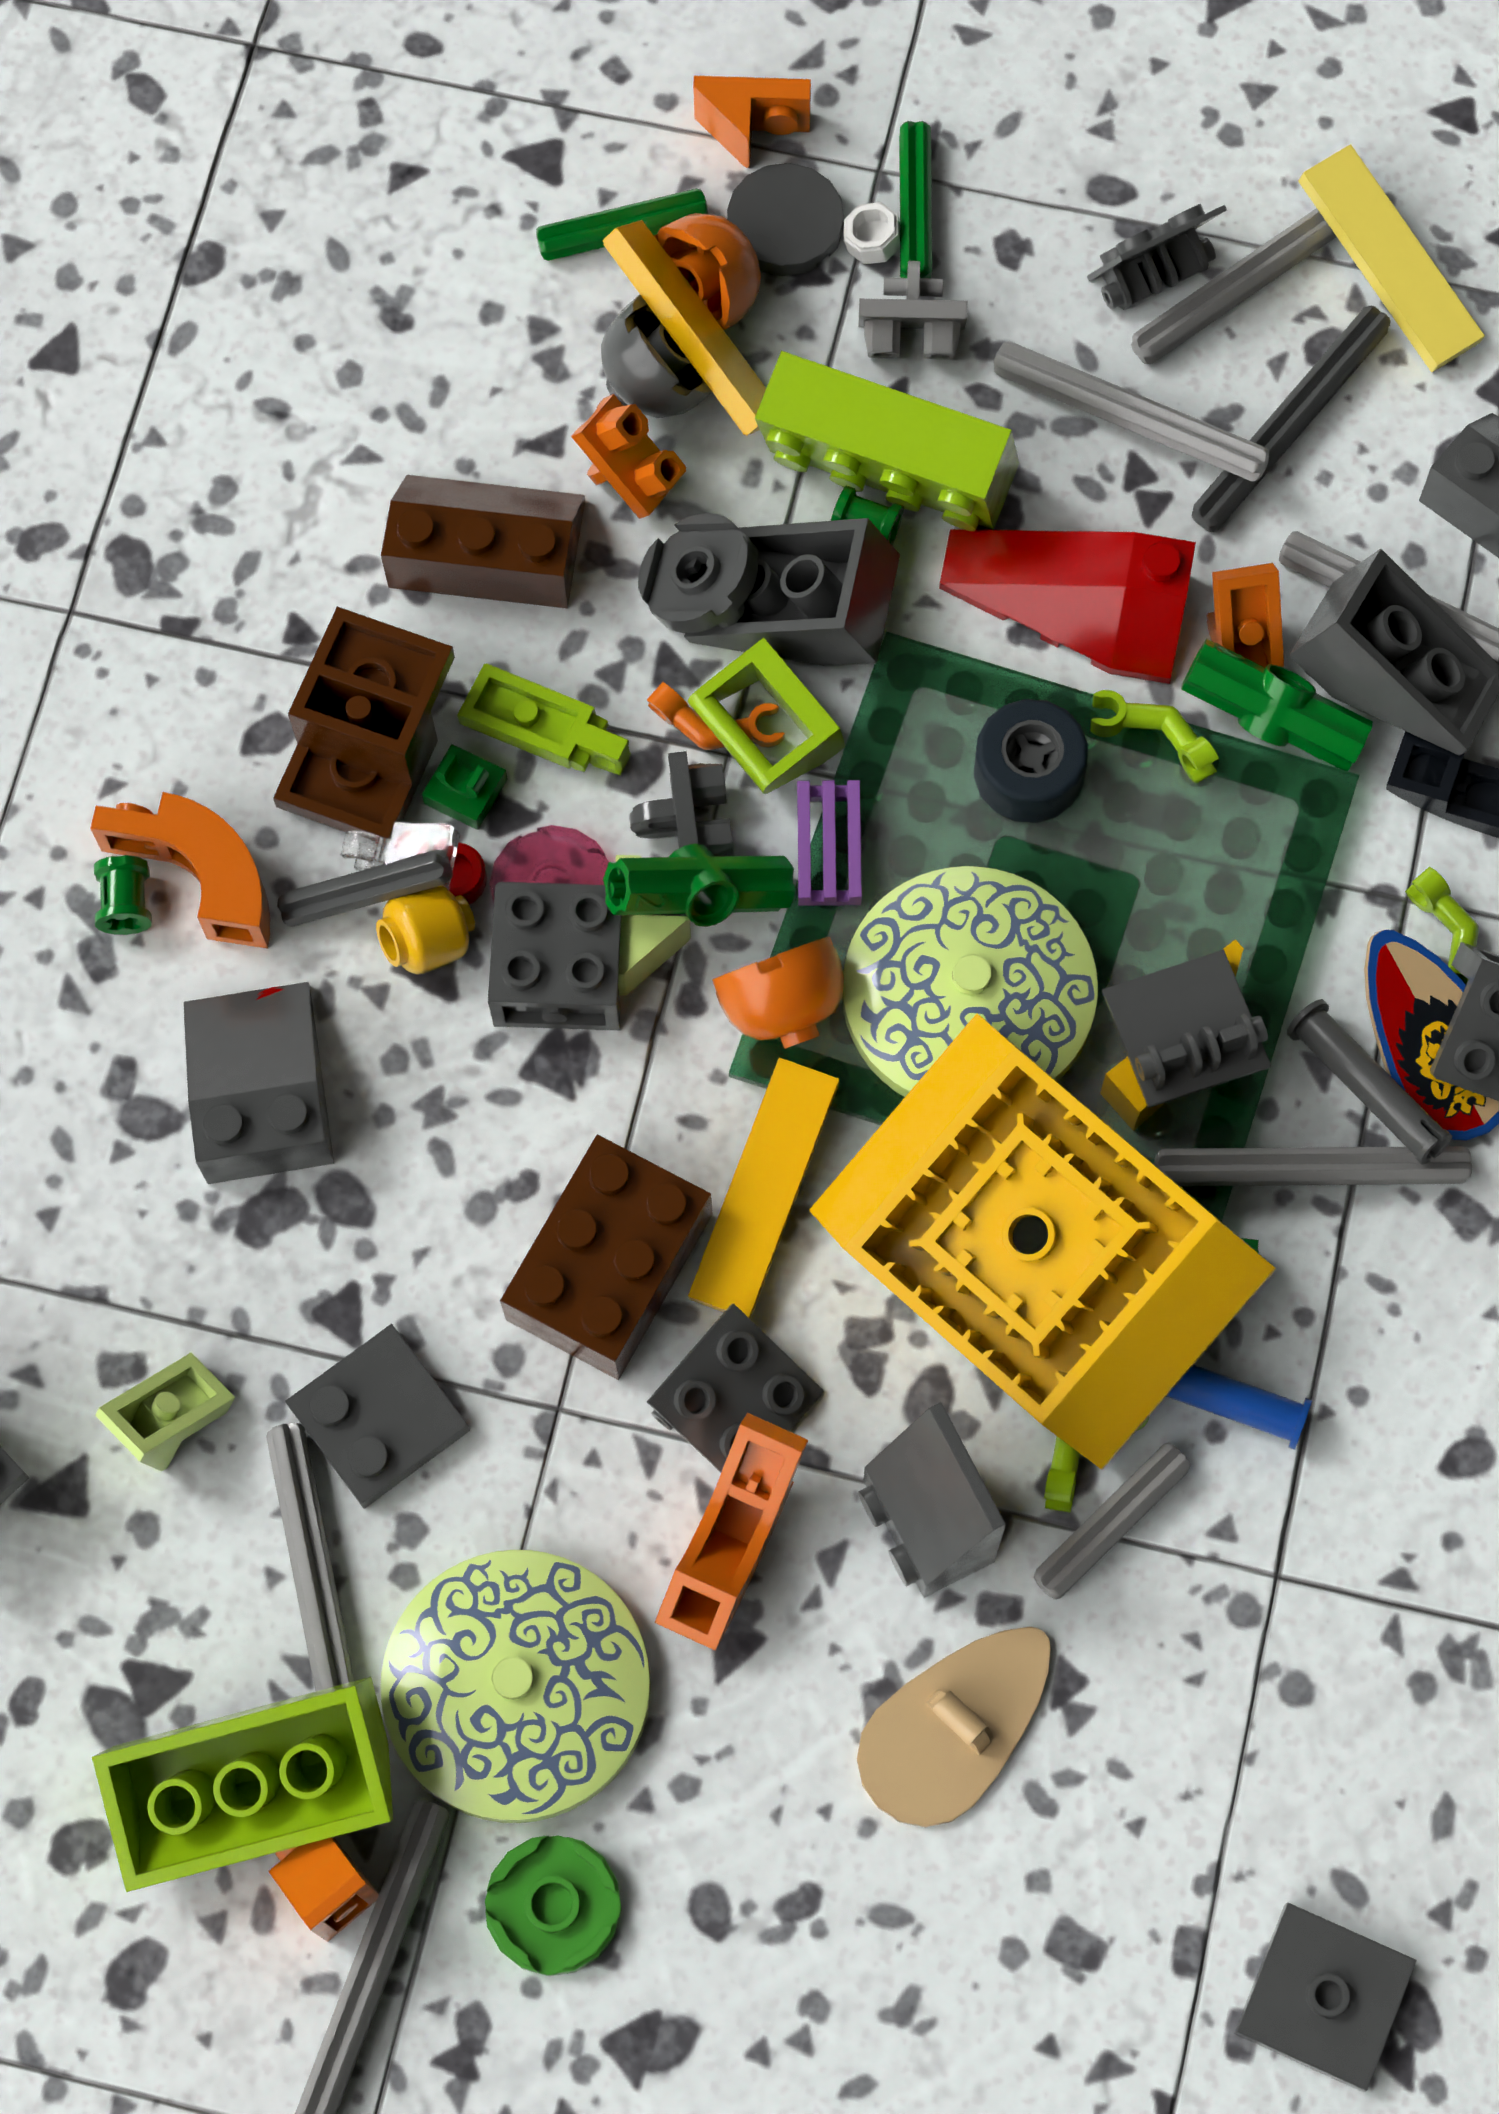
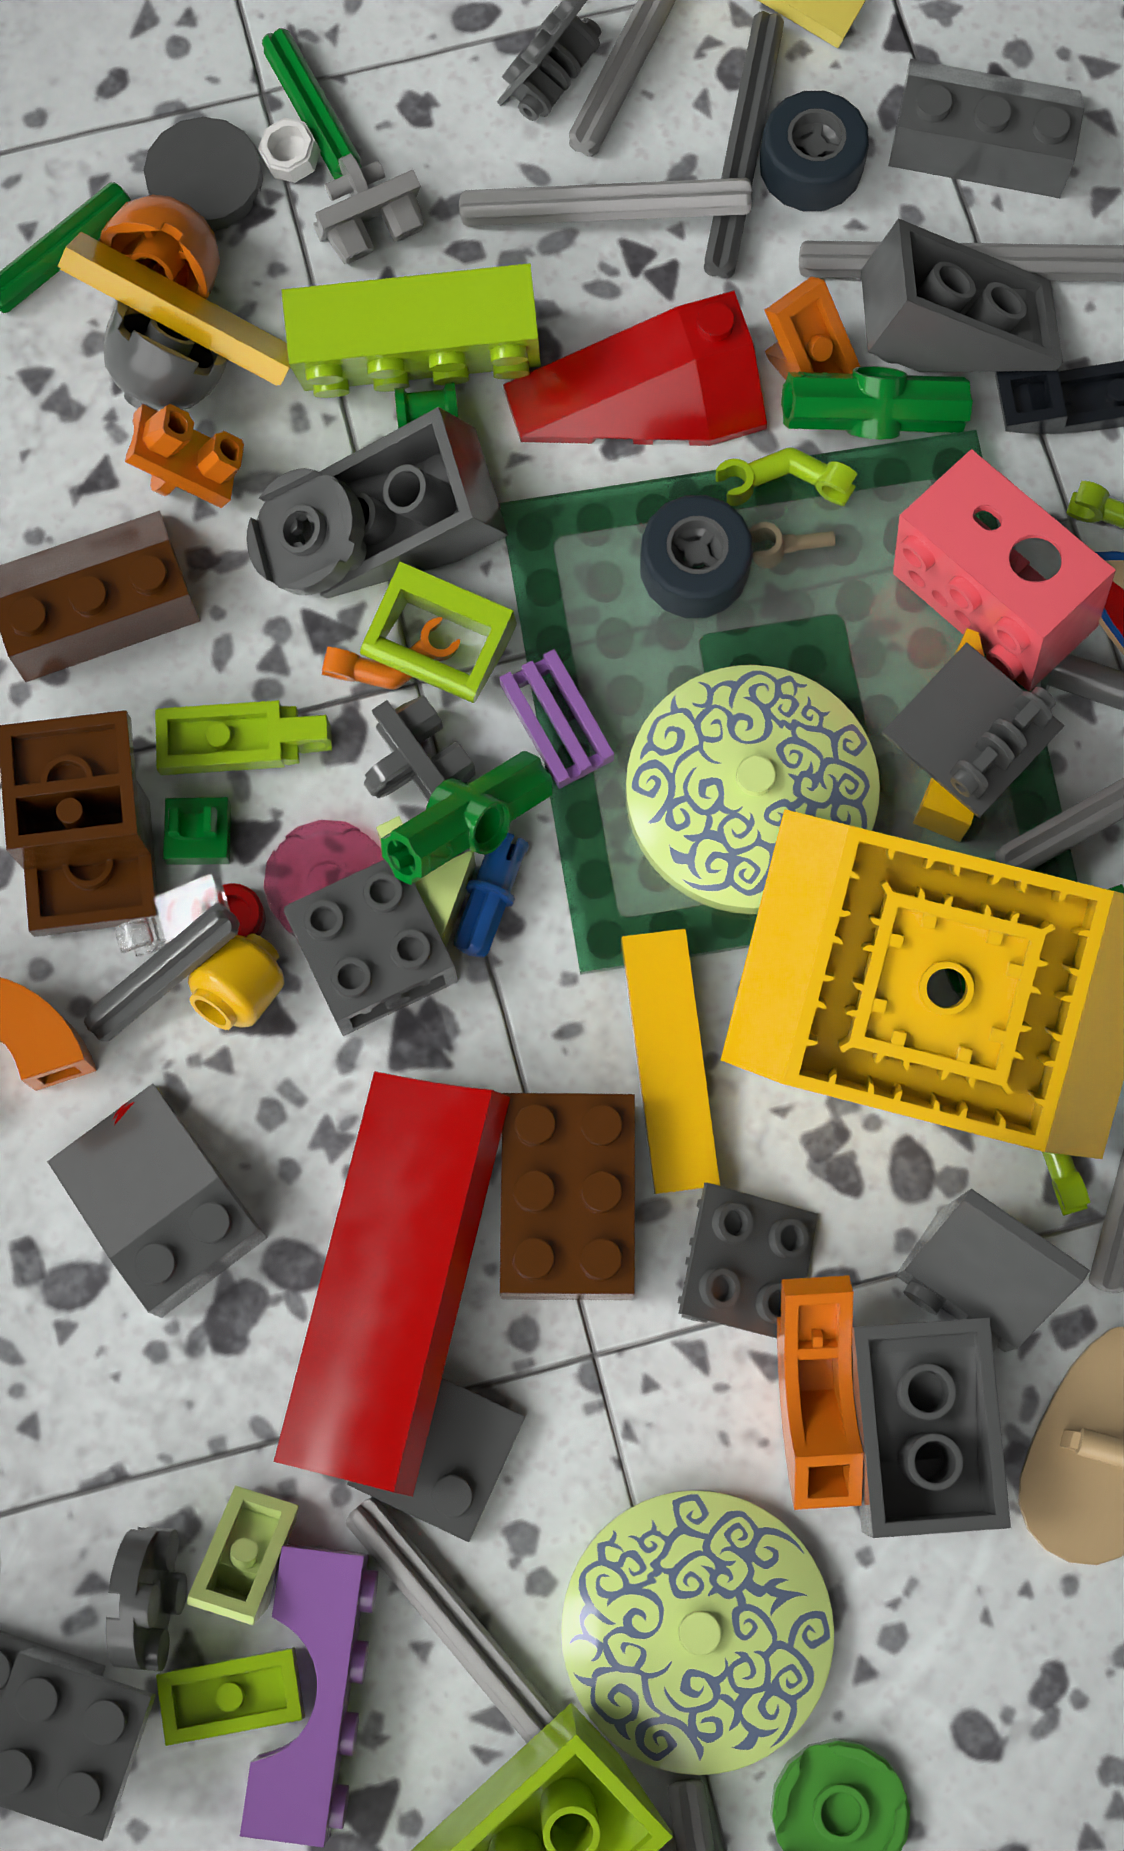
camera: 30 degrees left, 5 degrees up
(64, 1398) = (148, 1596): none -> dark grey plate
(91, 1523) = (230, 1696): none -> lime plate
(109, 1622) = (296, 1787): none -> medium lavender arch
(415, 1245) = (392, 1282): none -> red arch
(686, 968) = (489, 897): none -> blue axle
(739, 105) = (108, 89): orange slope -> none
(784, 993) = (597, 876): orange cylinder -> none
(807, 1610) = (929, 1428): none -> dark grey slope
(1117, 789) = (785, 543): none -> dark tan hand
(1270, 876) = (986, 584): none -> coral piece
(1345, 432) = (813, 150): none -> black wheel

